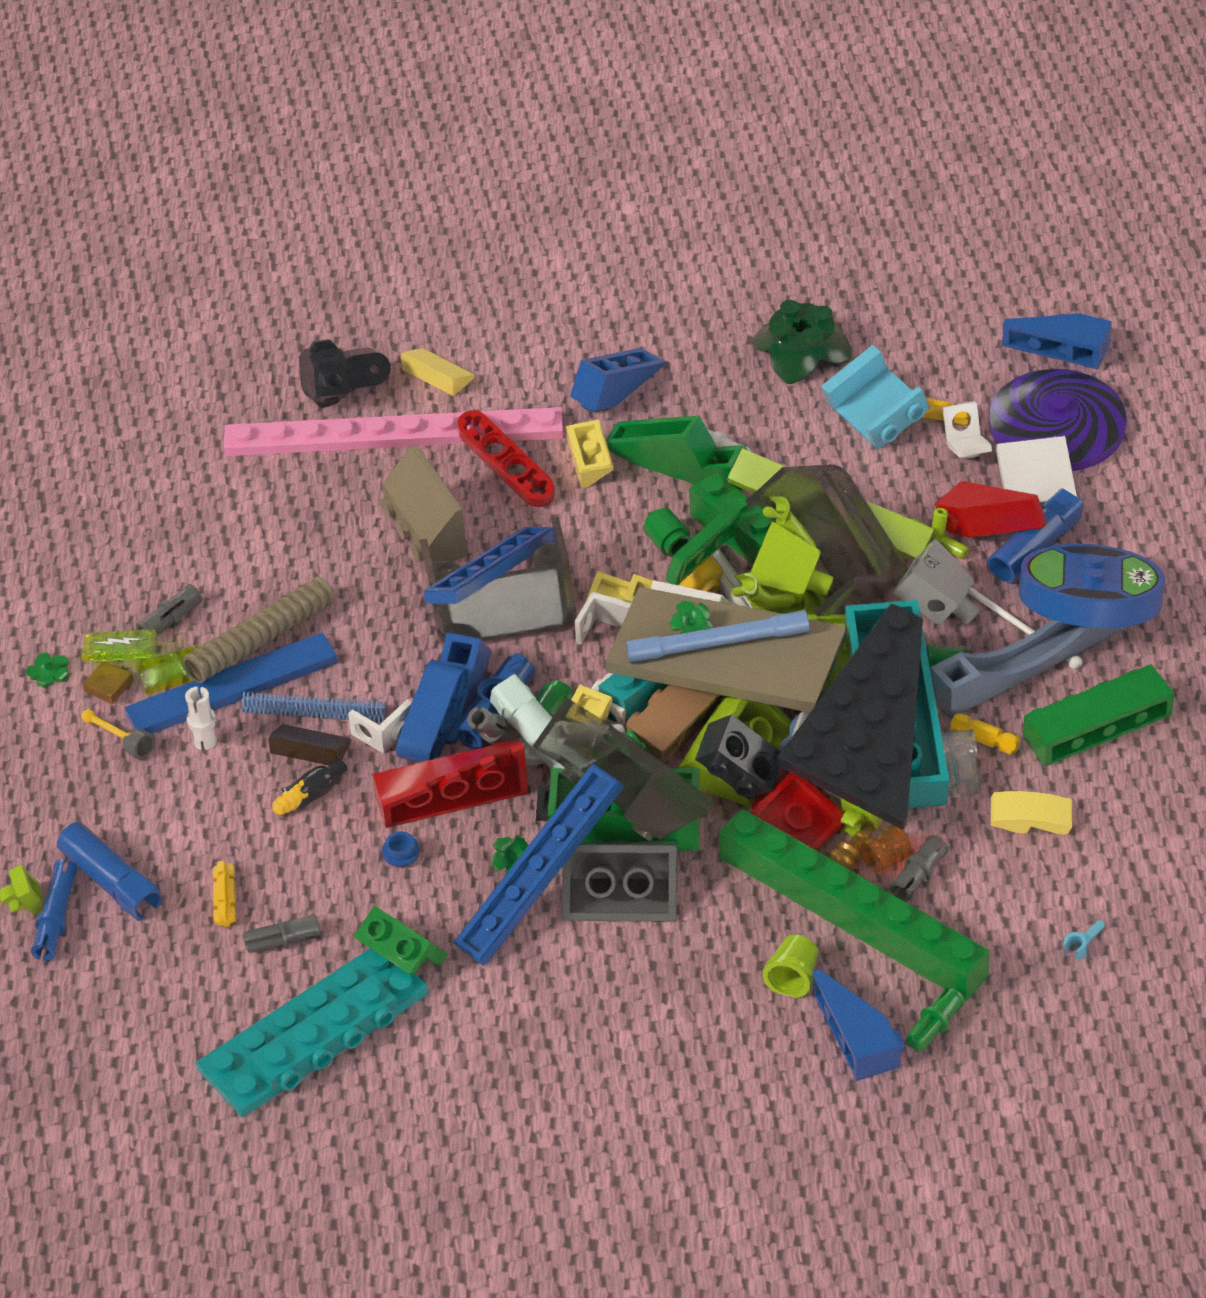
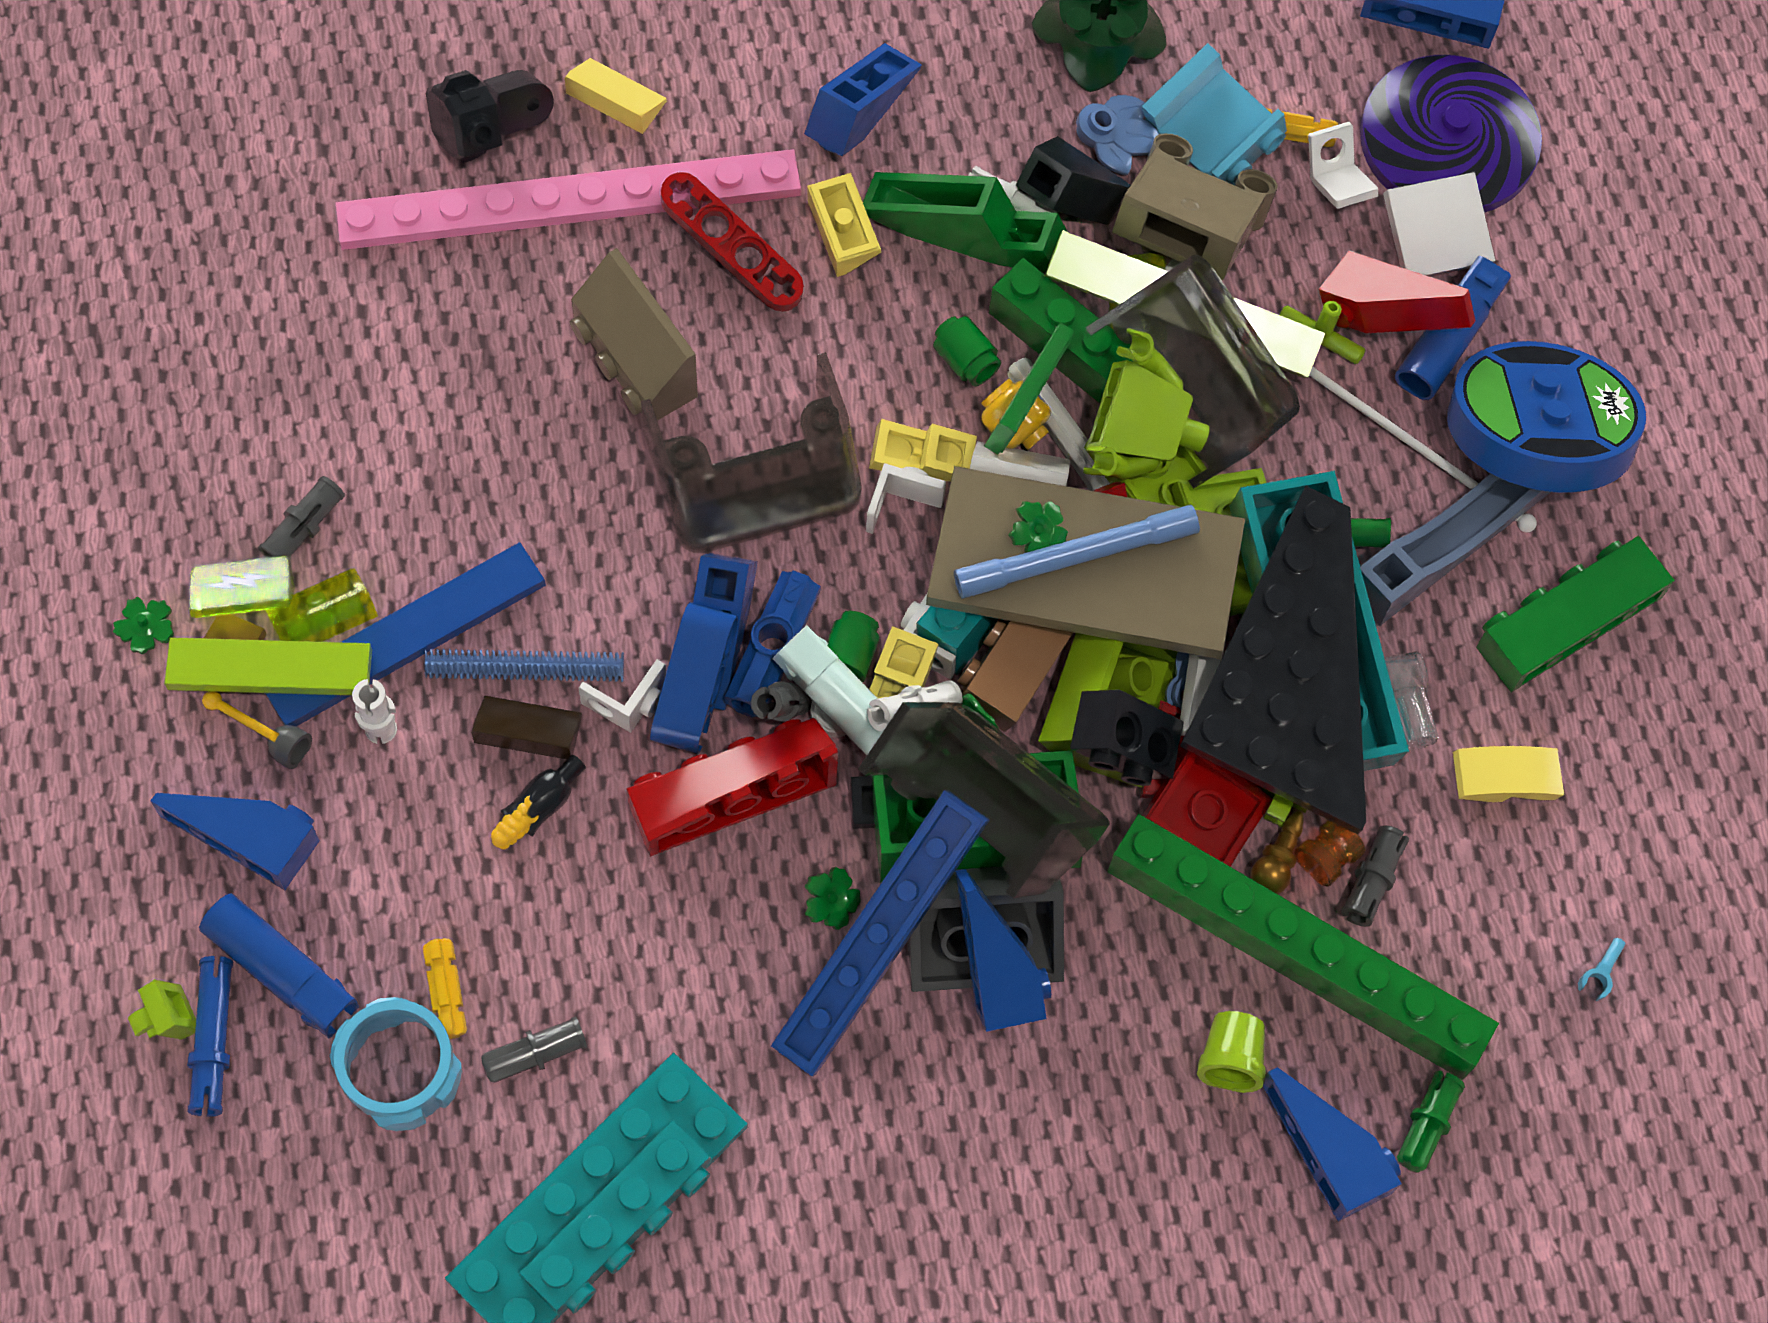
camera: 15 degrees left, 20 degrees up
(97, 788) = (249, 831): none -> blue slope
(125, 692) = (266, 666): none -> lime tile
(178, 902) = (378, 1017): none -> medium azure piece
(258, 629) = (432, 550): dark tan piece -> none
(397, 942) = (699, 1059): green bracket -> none
(400, 849) = (677, 896): blue plate -> none
(488, 566) = (743, 441): blue tile -> none
(625, 895) = (1002, 971): none -> blue slope
(762, 432) = (1072, 182): none -> black slope
(804, 407) = (1123, 132): none -> medium blue plate
(834, 439) = (1189, 211): none -> dark tan piece
(938, 585) = (1340, 422): light grey torso -> none
(987, 733) = (1433, 649): yellow axle -> none

